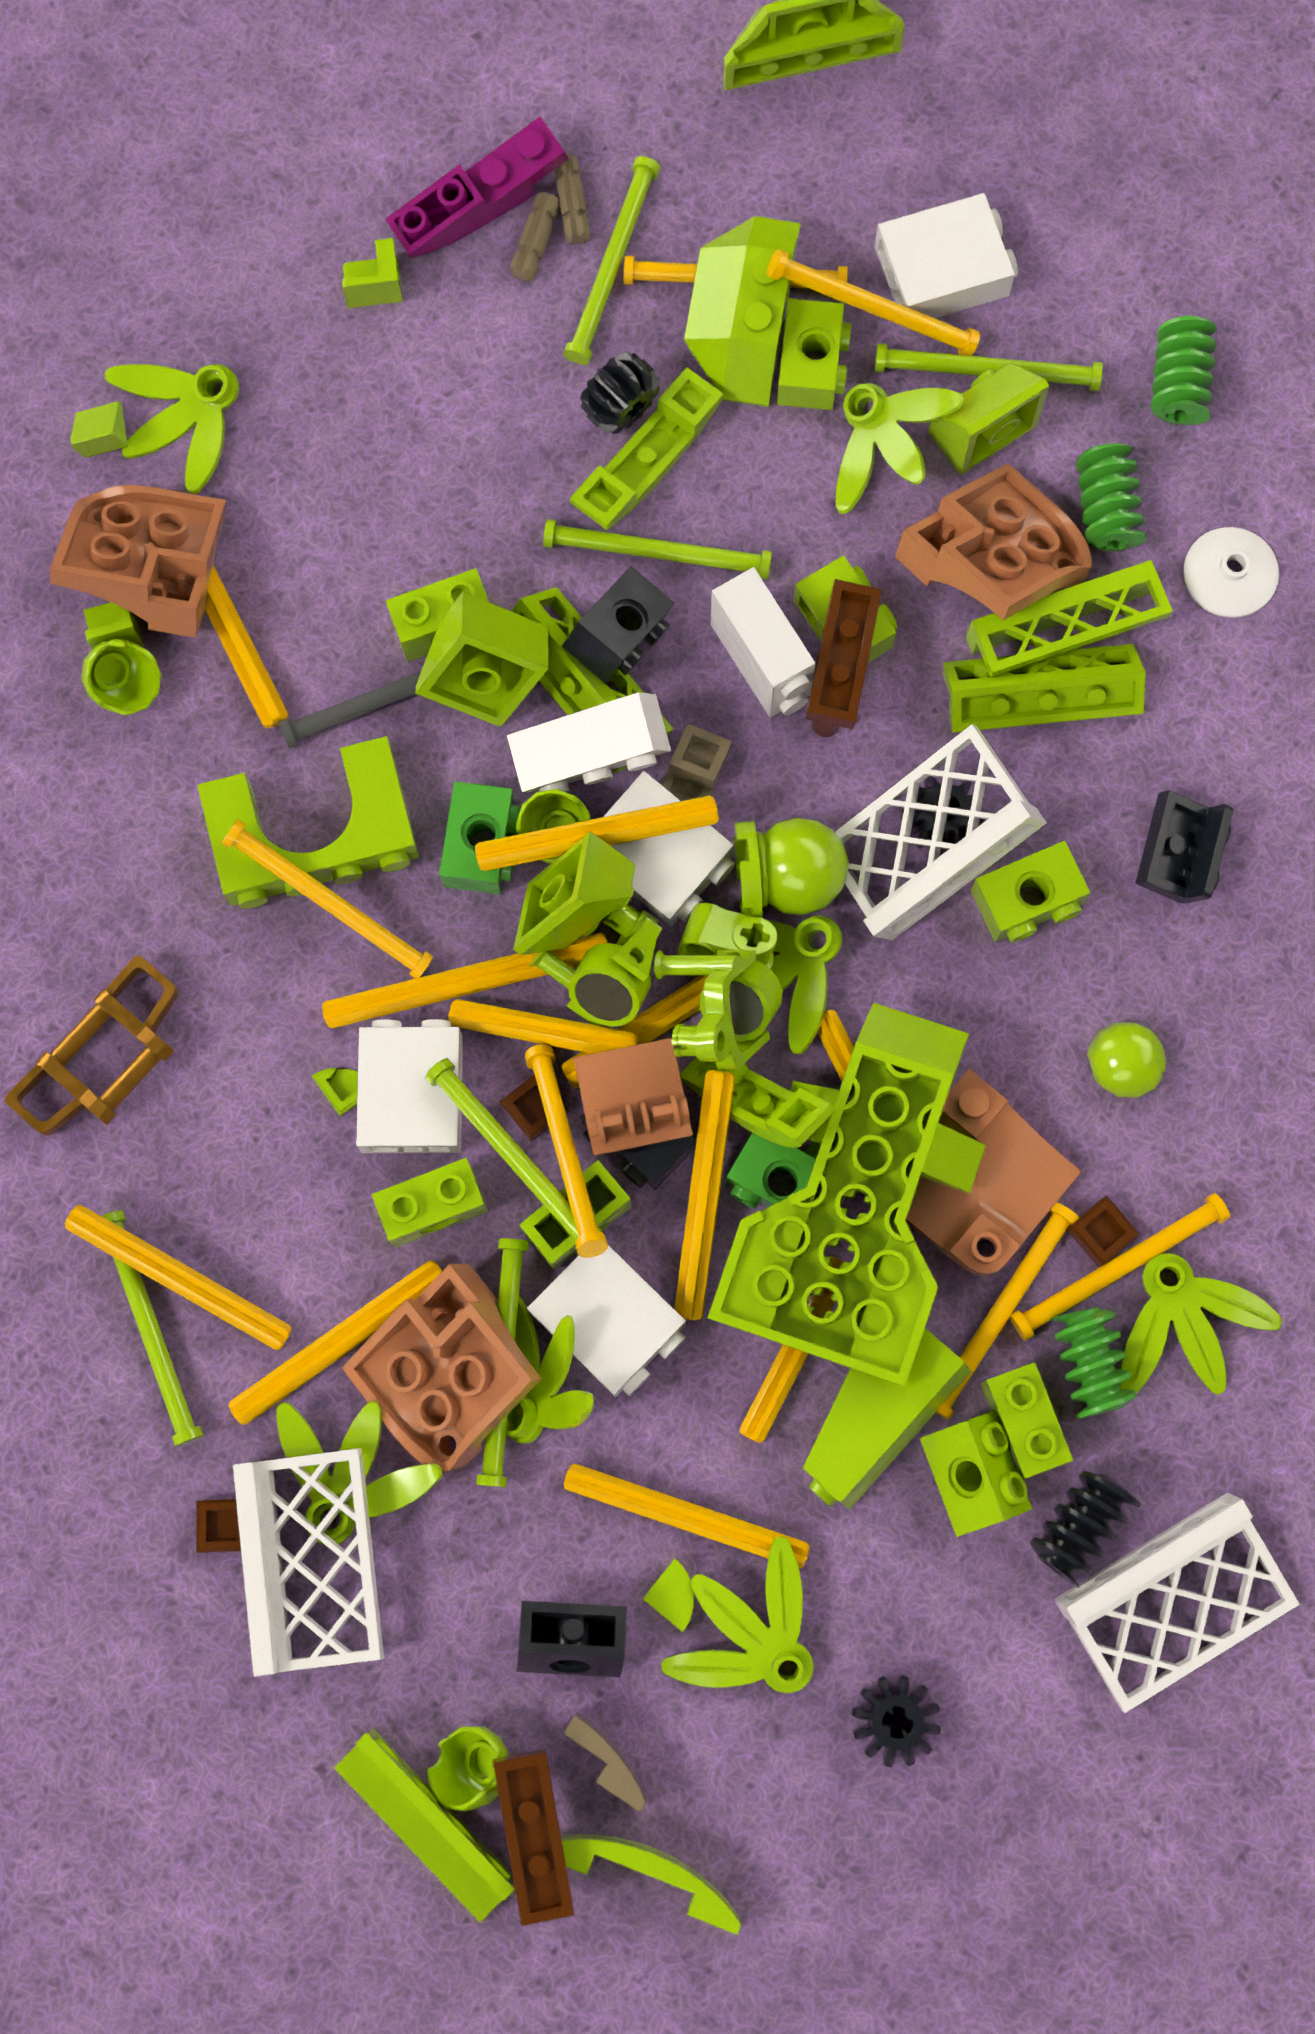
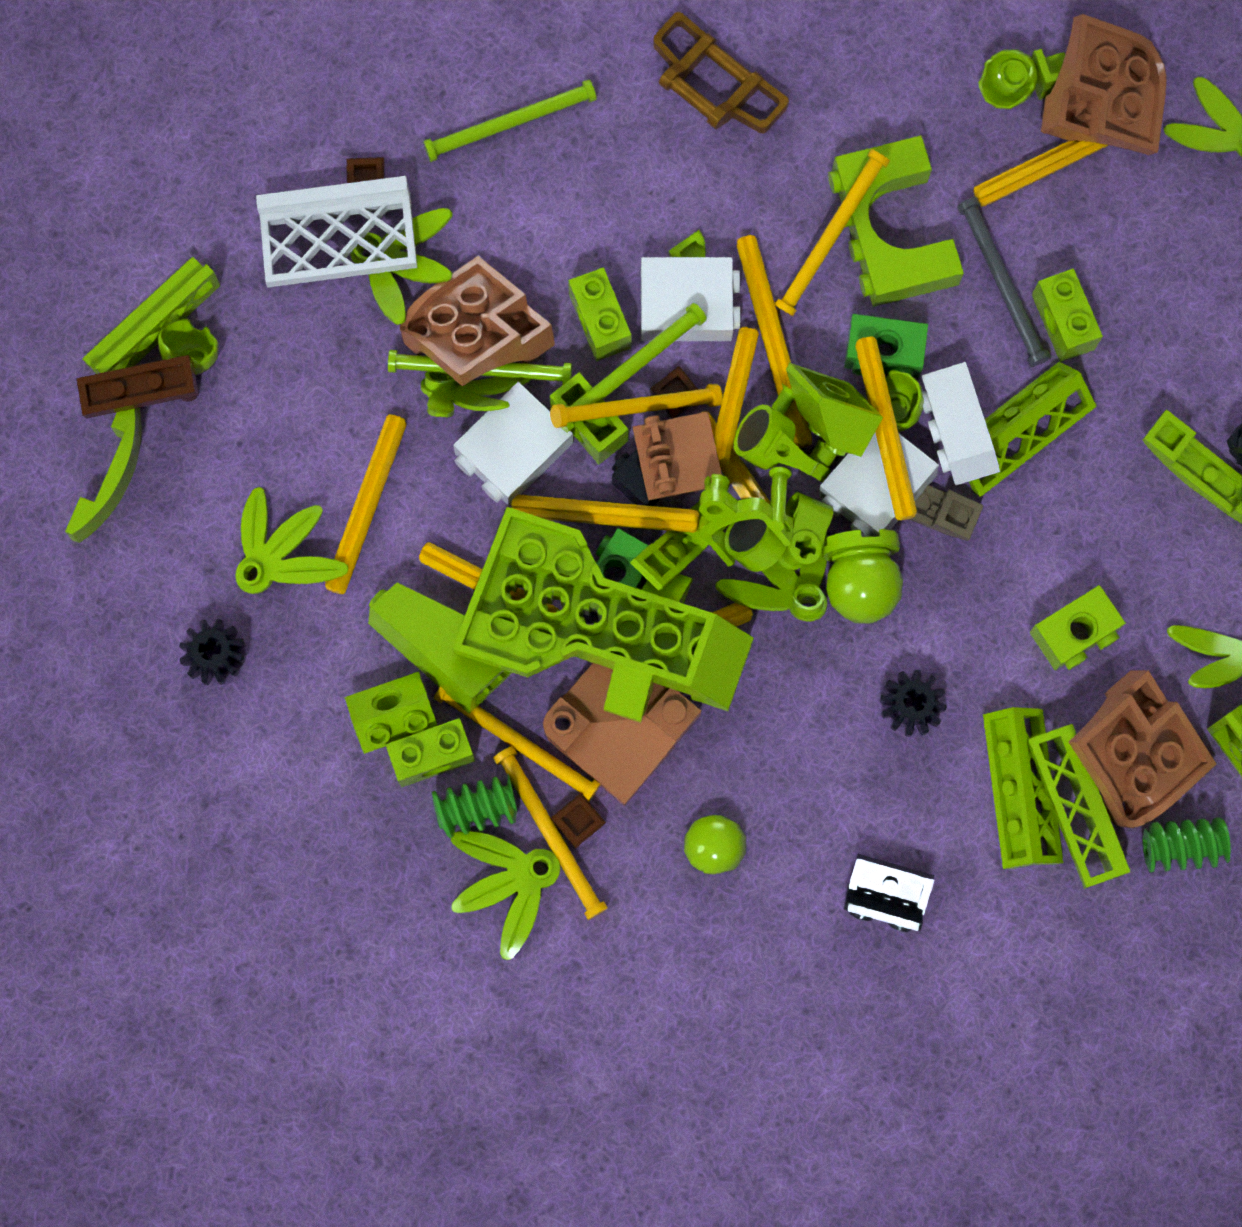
camera: 85 degrees right, 0 degrees up
(99, 430) = (1214, 57): lime slope -> none
(178, 1277) = (545, 137): yellow axle -> none
(330, 1346) = (494, 247): yellow axle -> none
(483, 659) = (1027, 343): lime slope -> none
(571, 1639) = (276, 416): black brick -> none
(617, 1774) = (181, 453): dark tan slope -> none
(618, 625) = (1080, 455): black brick -> none
(656, 549) = (1140, 405): lime bar -> none
(673, 1595) = (308, 492): lime tile -> none
(762, 643) = (1047, 558): white brick -> none
(842, 657) = (1038, 618): reddish brown piece -> none
(957, 865) = (867, 708): white fence -> none
(1048, 871) = (848, 746): lime brick -> none
(1082, 1525) = (350, 794): black piece -> none
(1162, 1558) = (323, 848): white fence -> none
(1226, 591) = (1110, 952): white dish -> none

